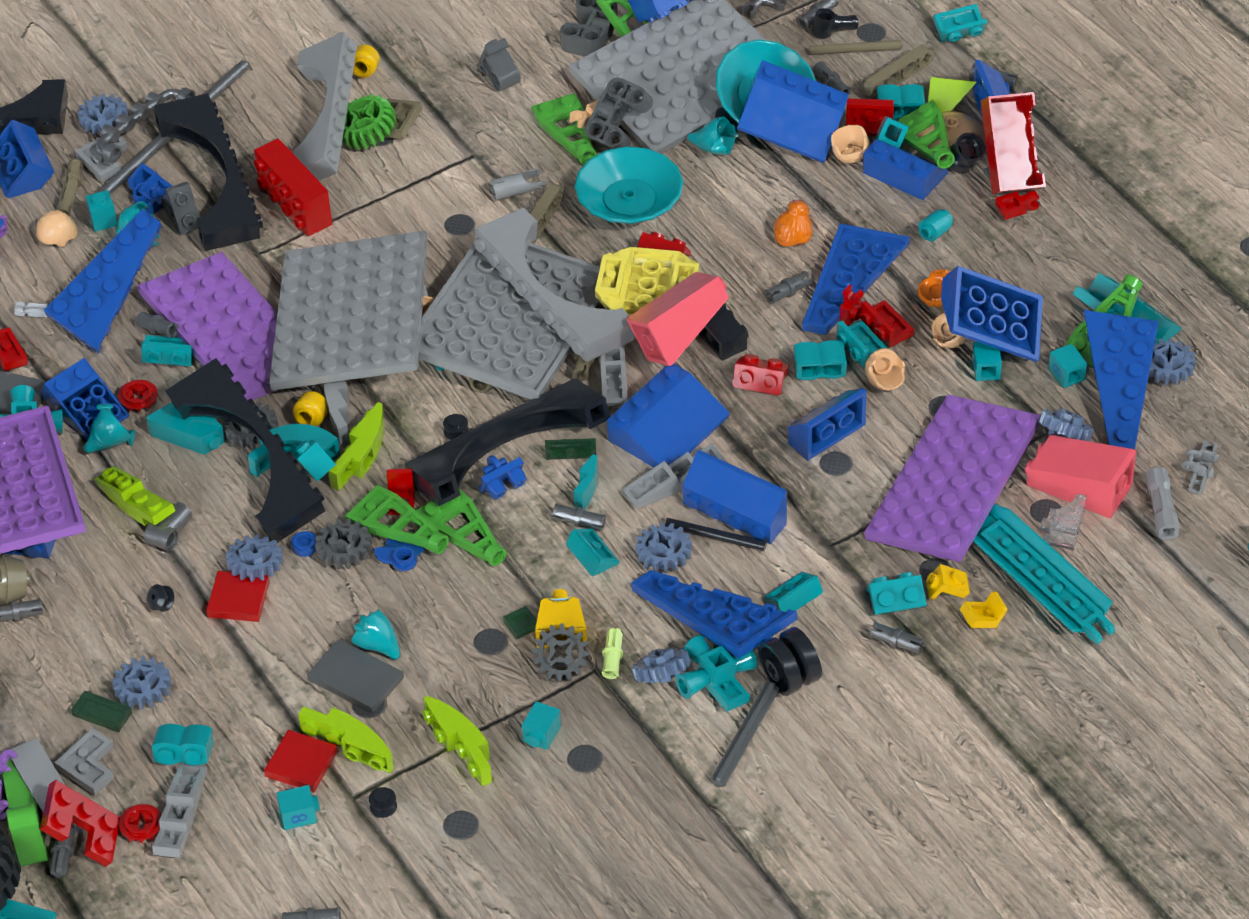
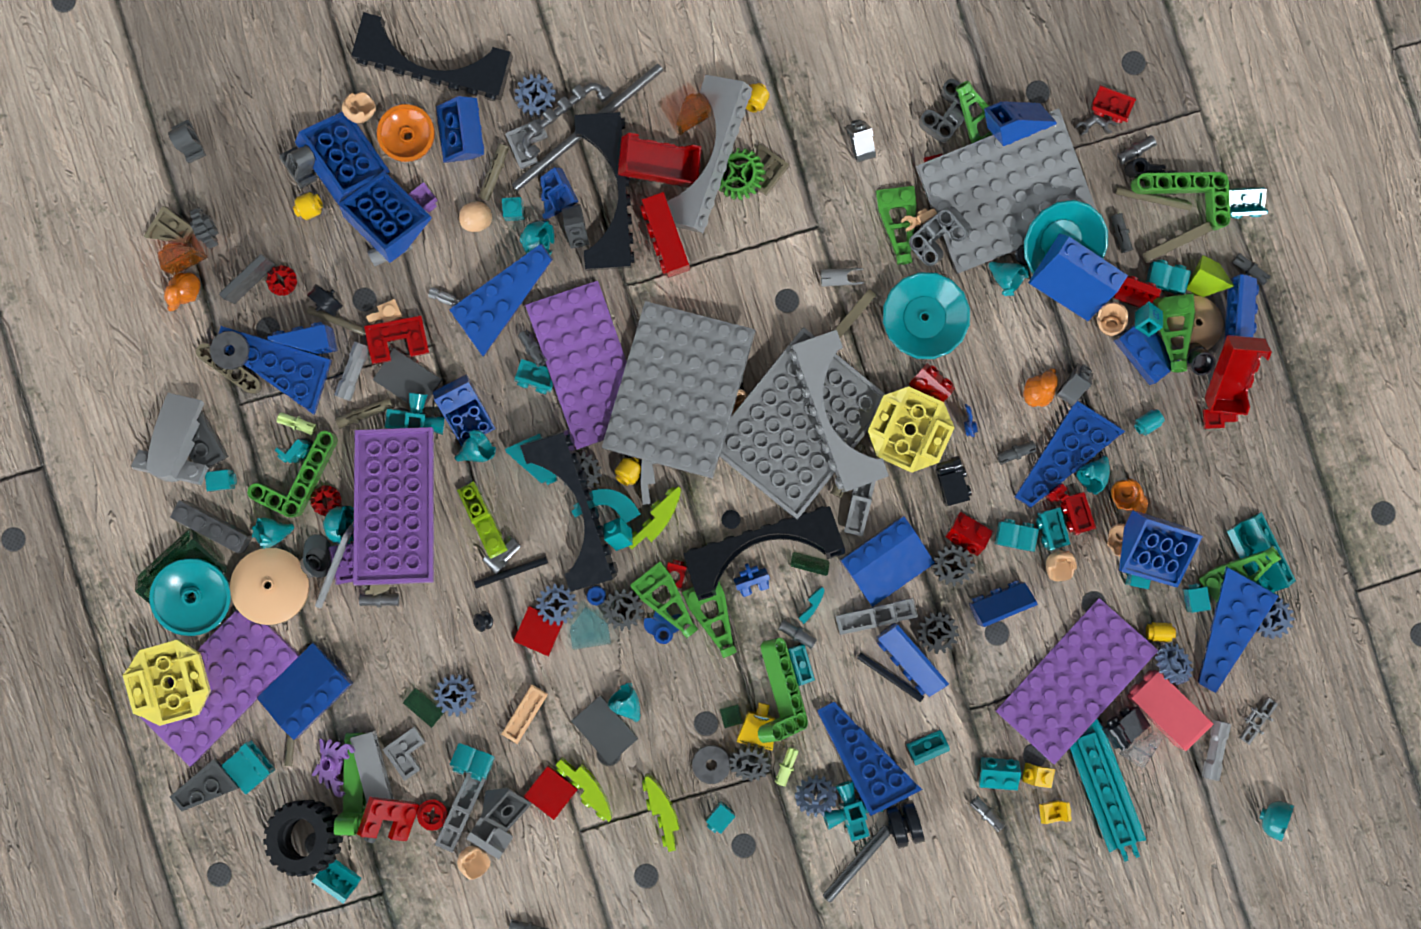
camera: 15 degrees right, 40 degrees up
(140, 388) = (508, 404): red gear -> none
(185, 546) = (511, 572): none -> black bar
(212, 852) = (473, 862): none -> light nougat hair
(228, 829) = (489, 838): none -> light grey panel
(240, 783) = (503, 807): none -> dark grey slope
(241, 682) = (524, 714): none -> light nougat plate
(256, 128) = (659, 161): none -> red piece
(296, 86) = (692, 112): none -> clear orange slope
(297, 807) = (539, 837): teal brick -> none
(305, 580) = (589, 631): none -> clear light blue slope
(382, 802) = (597, 848): black wheel -> none
(506, 666) = (707, 775): none -> flat silver tile
(587, 583) = (785, 691): none -> bright green beam
(661, 547) = (857, 682): sand blue gear -> none
(677, 317) = (923, 485): coral slope -> none
(717, 265) = (970, 427): none -> blue plate
(751, 402) = (961, 568): none -> dark grey gear
(763, 465) = (938, 623): none -> dark grey gear
(832, 207) = (1076, 384): none -> dark grey pin
(887, 21) = (1189, 186): none -> bright green beam
(888, 283) = (1095, 475): none -> teal hat
(1033, 498) = (1125, 727): none -> black hinge
(1038, 402) = (1160, 632): none -> yellow brick

